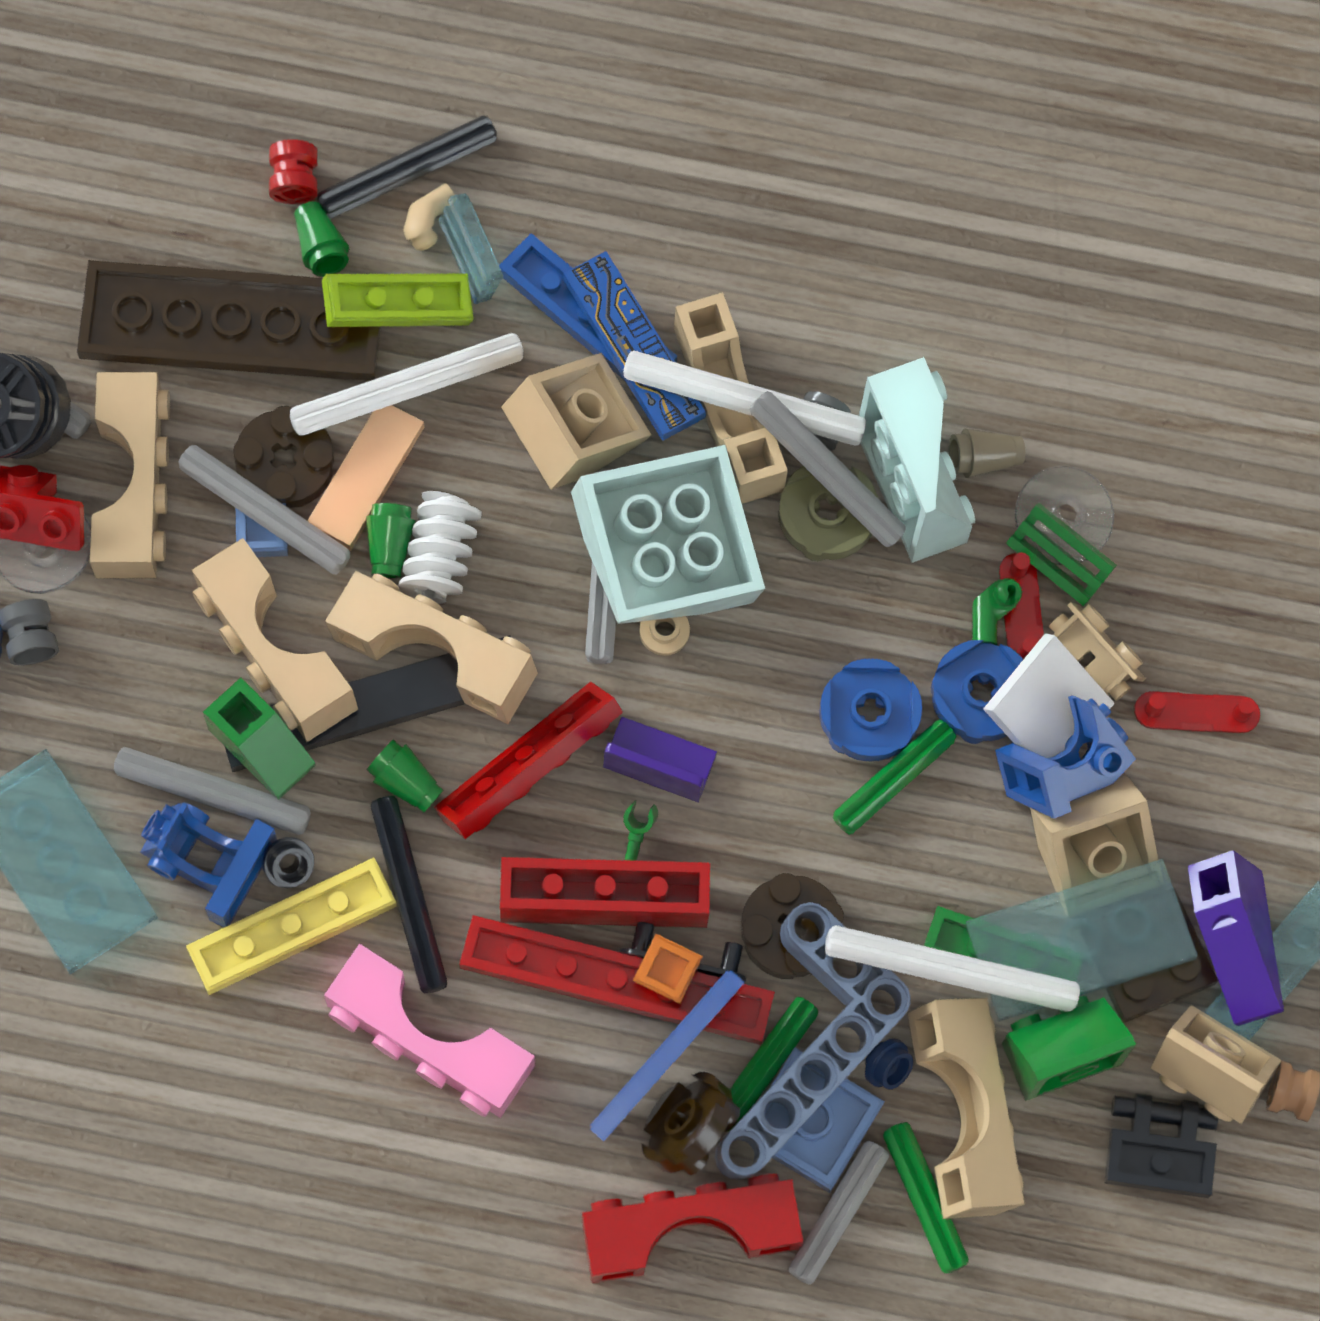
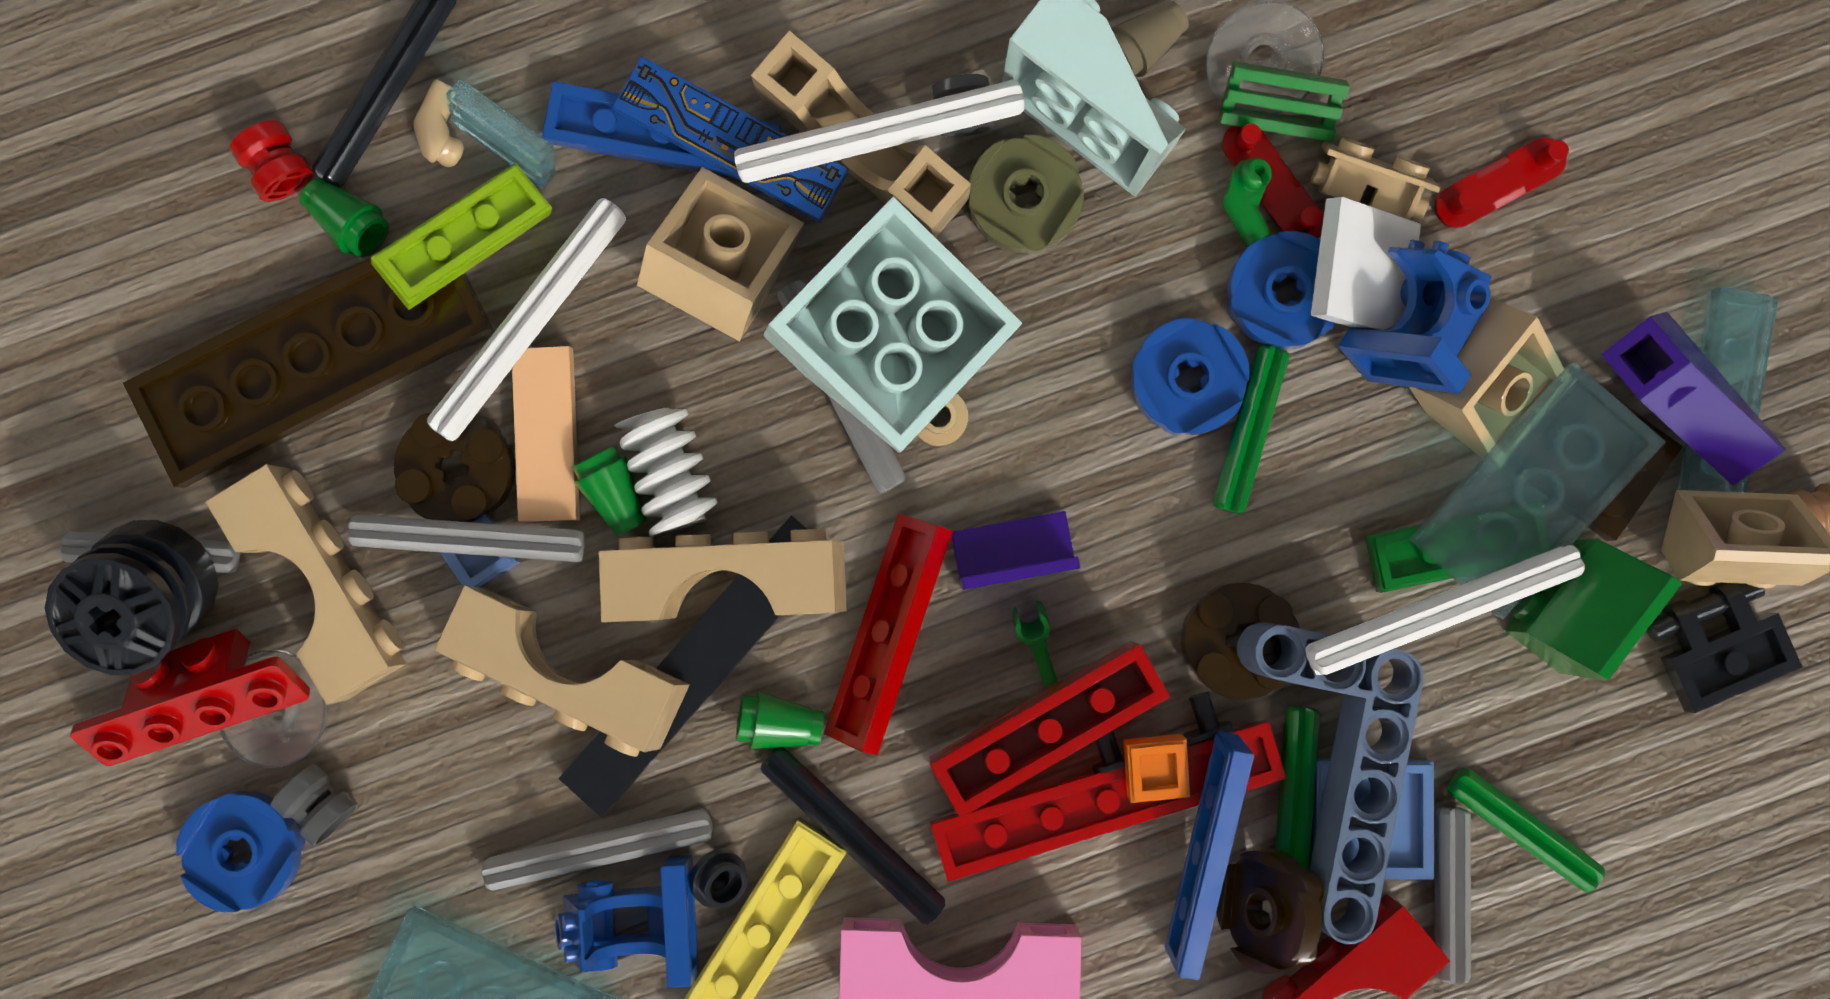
camera: 25 degrees left, 15 degrees up
(258, 738) = (610, 786): green slope -> none
(827, 469) = (1007, 156): light grey axle -> none
(888, 1064) = (1426, 726): dark blue plate -> none
(960, 1047) = (1569, 776): tan arch -> none

